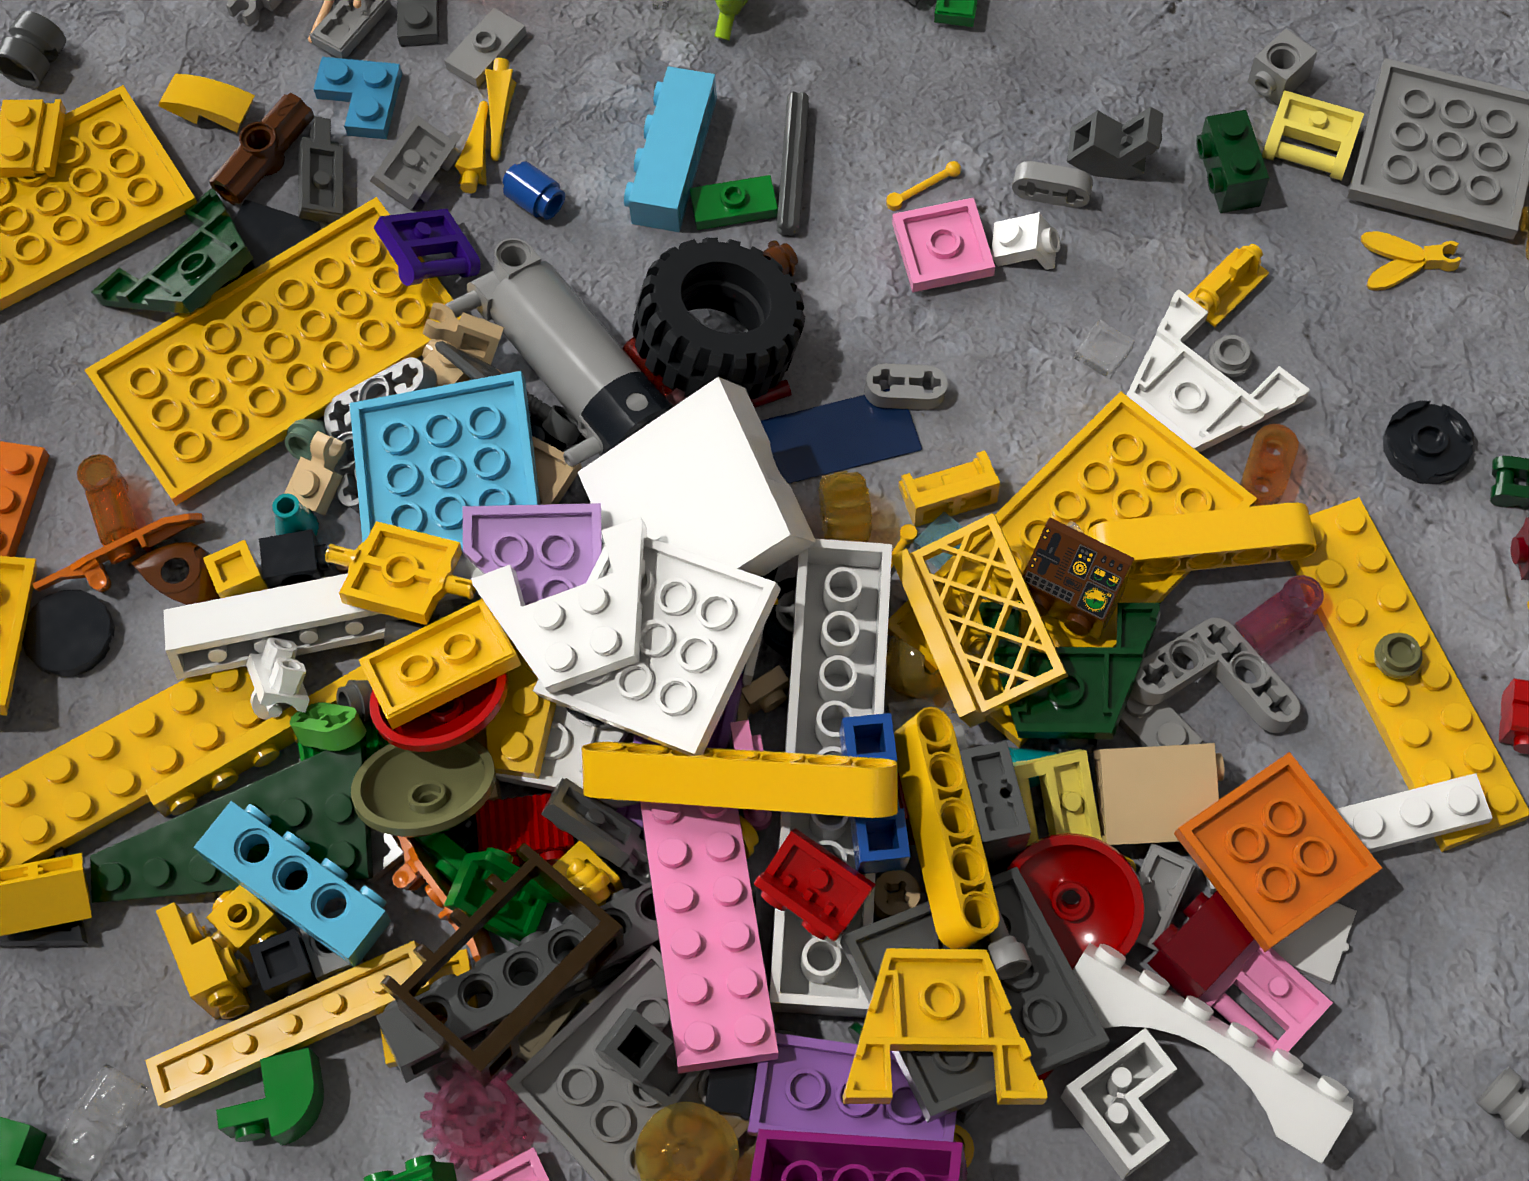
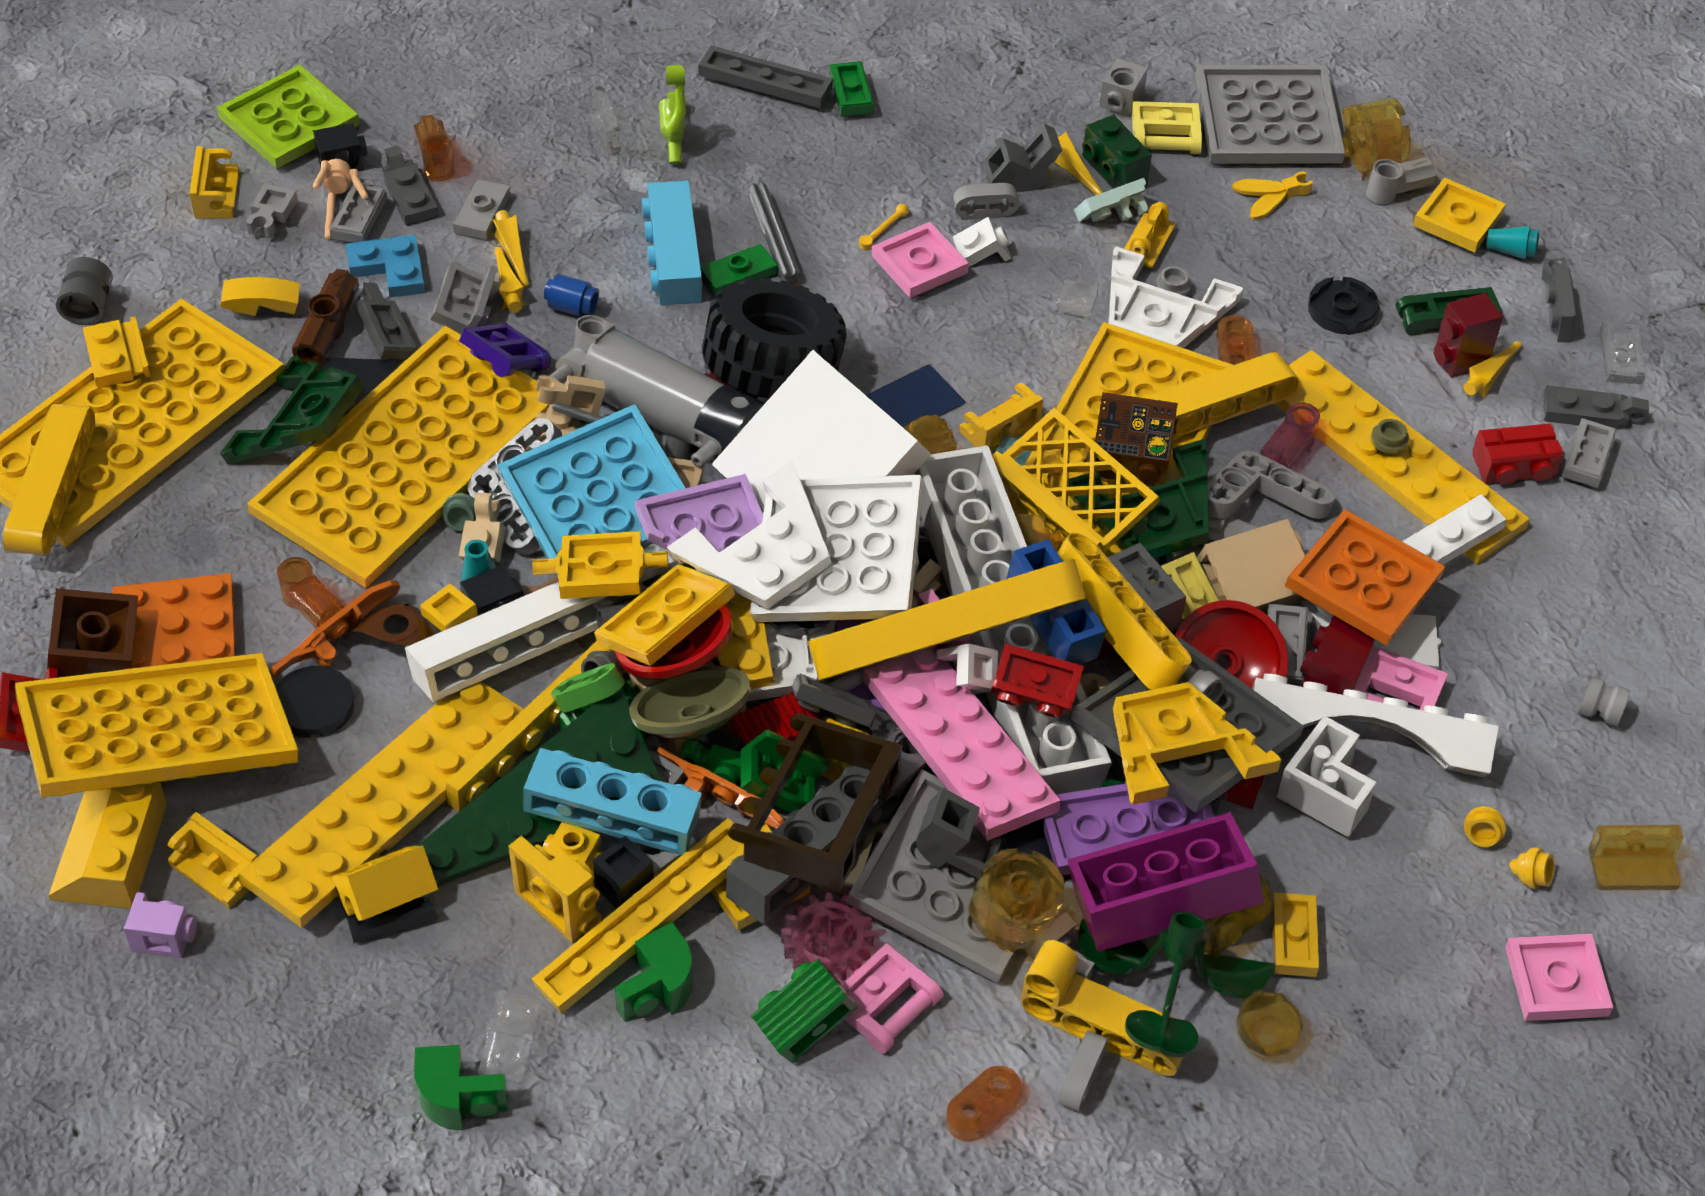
camera: 25 degrees left, 15 degrees down
(277, 679) = (526, 668): white hips -> none
(755, 837) = (974, 665): none -> white panel
(905, 386) = (935, 360): light grey beam -> none
(1176, 148) = (1072, 163): none -> yellow piece
(1184, 228) = (1120, 198): none -> light aqua plate

